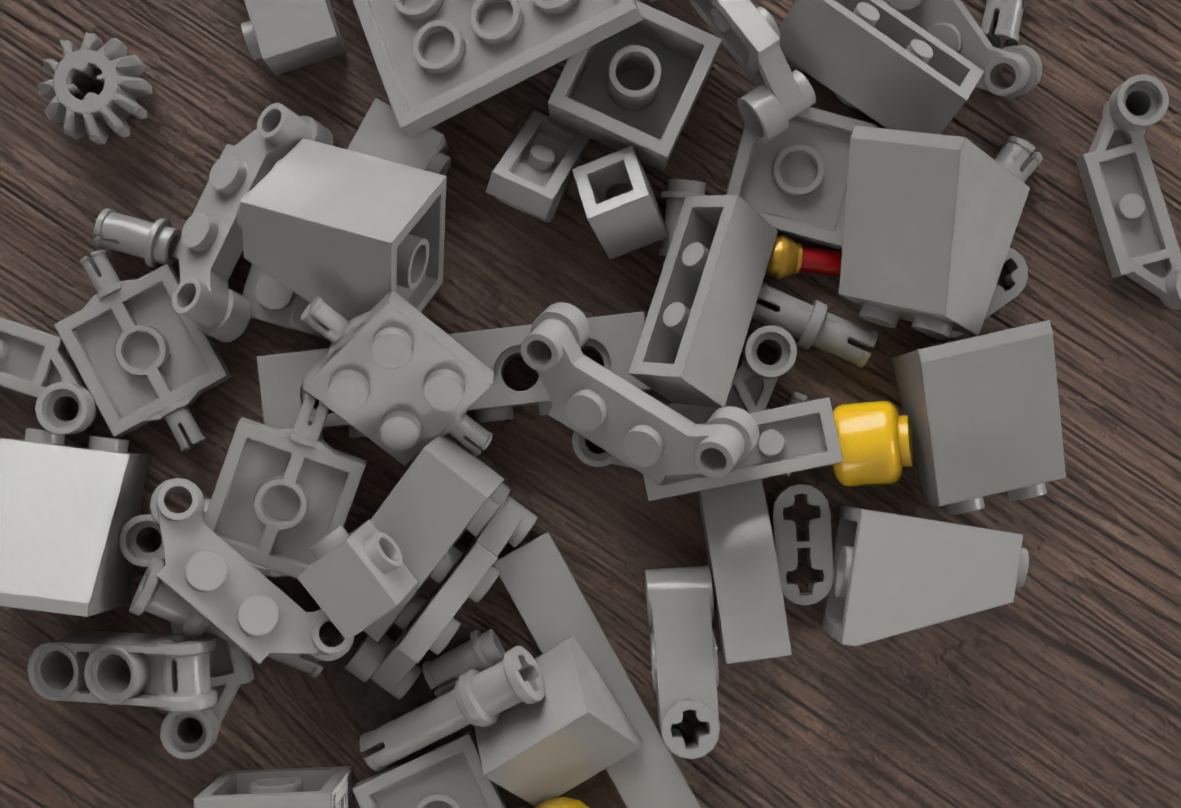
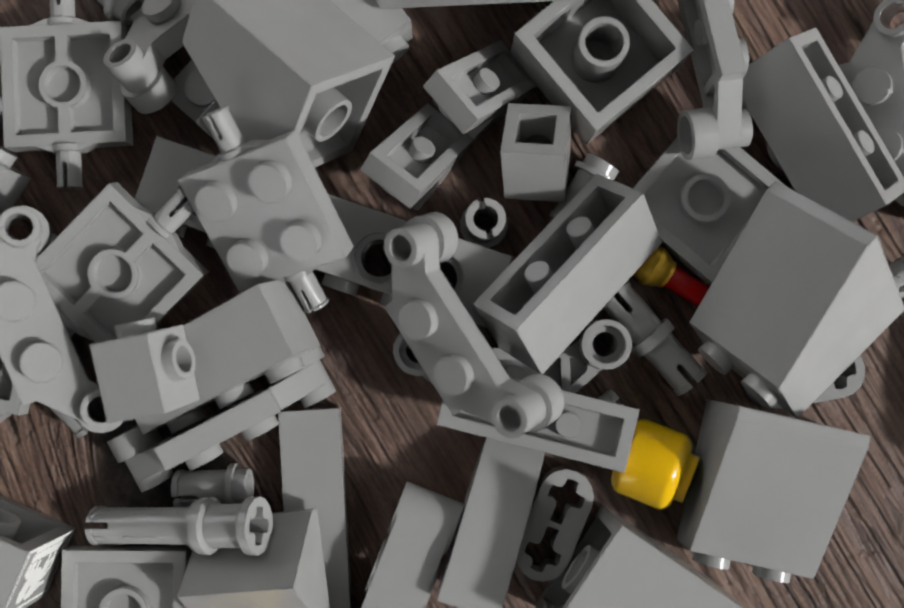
camera: 25 degrees right, 0 degrees up
(509, 259) = (417, 157): none -> light grey slope
(596, 307) = (475, 235): none -> light grey pin

